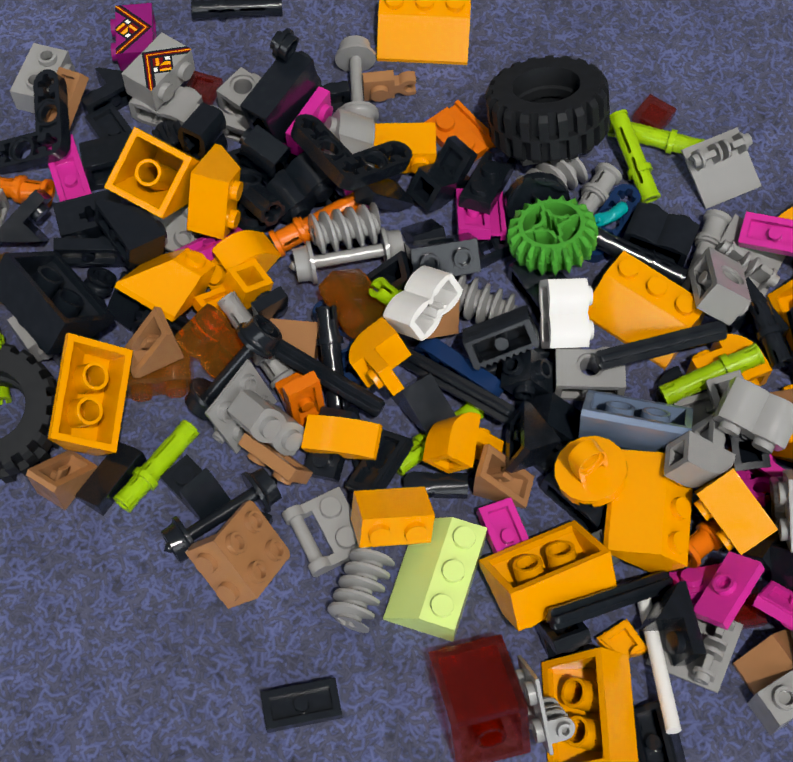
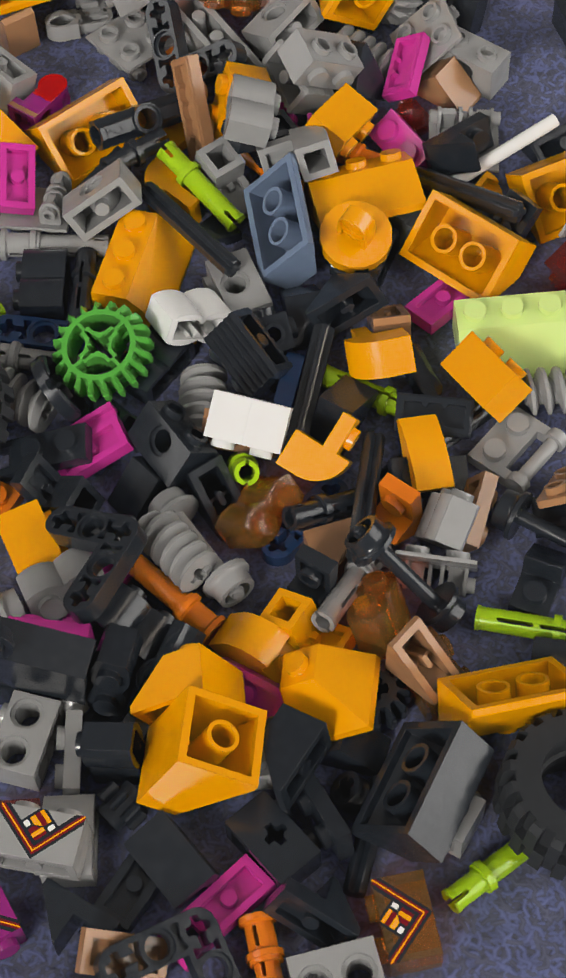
camera: 110 degrees left, 5 degrees down
(612, 215) = (41, 328): teal piece -> none
(728, 590) = (414, 111): dark pink plate -> none

